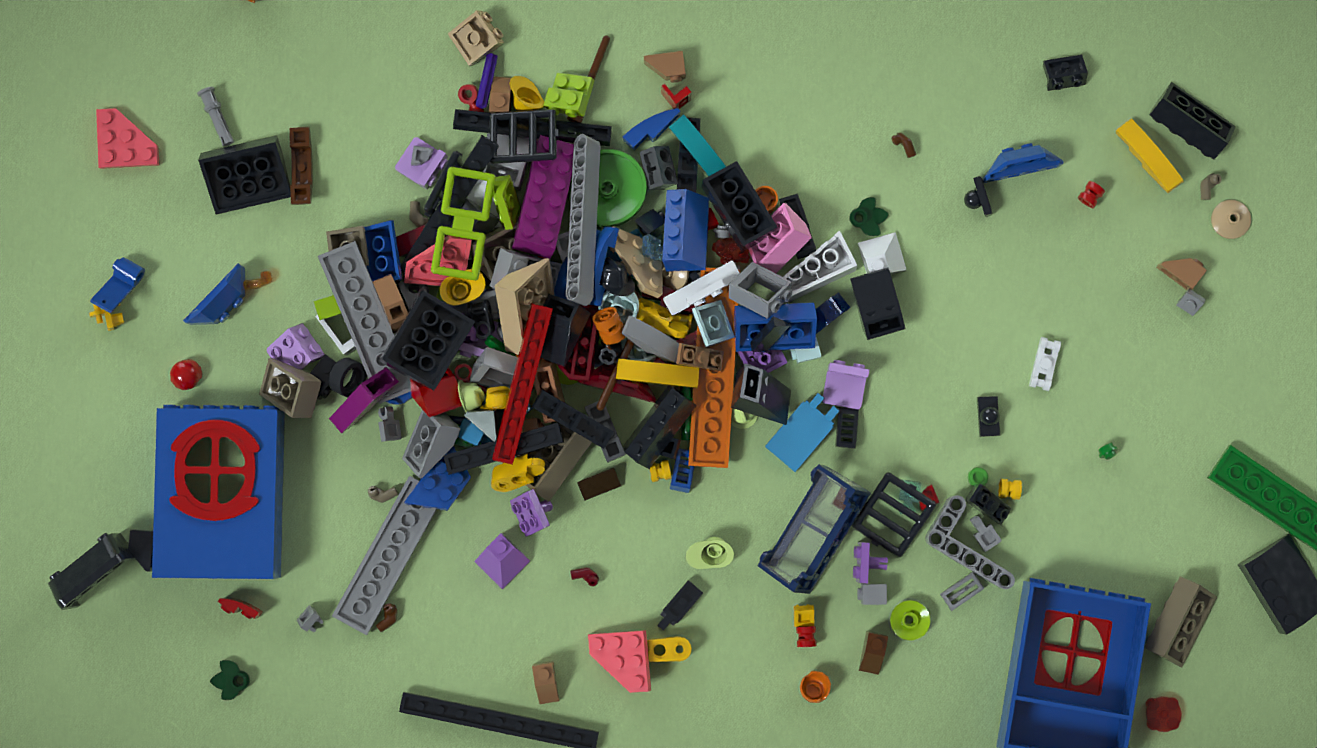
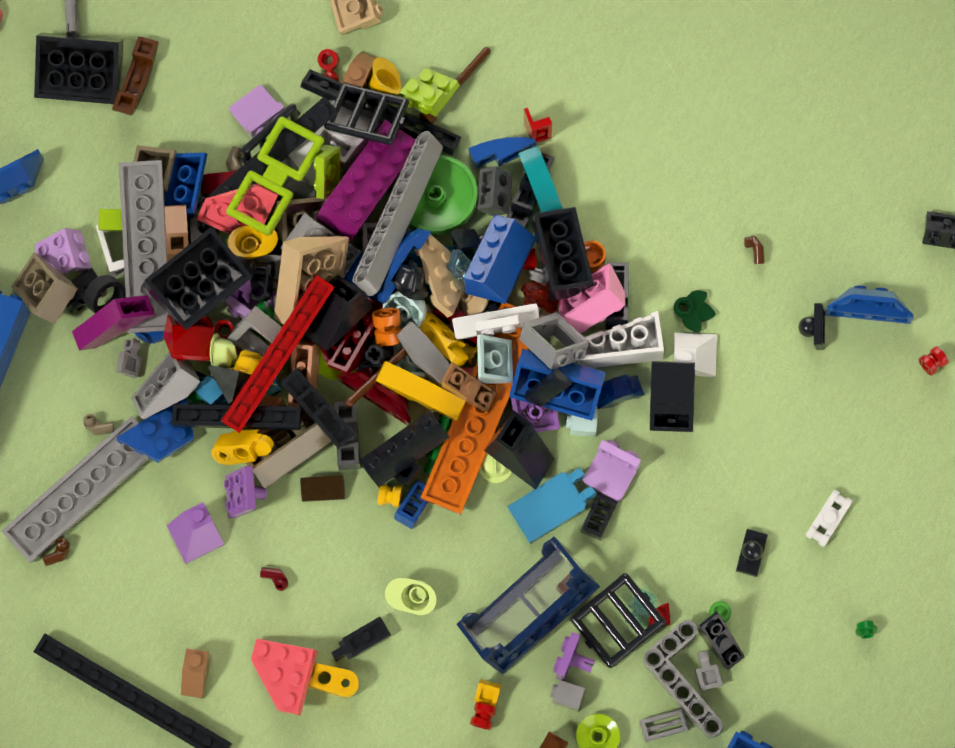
camera: 20 degrees right, 10 degrees down
(258, 283) = (47, 176): clear orange arm -> none
(421, 155) = (259, 104): light grey tile -> none
(486, 81) = (351, 52): dark purple axle -> none
(667, 65) = (538, 94): medium nougat slope -> none
(1010, 489) = (749, 634): yellow wheel -> none

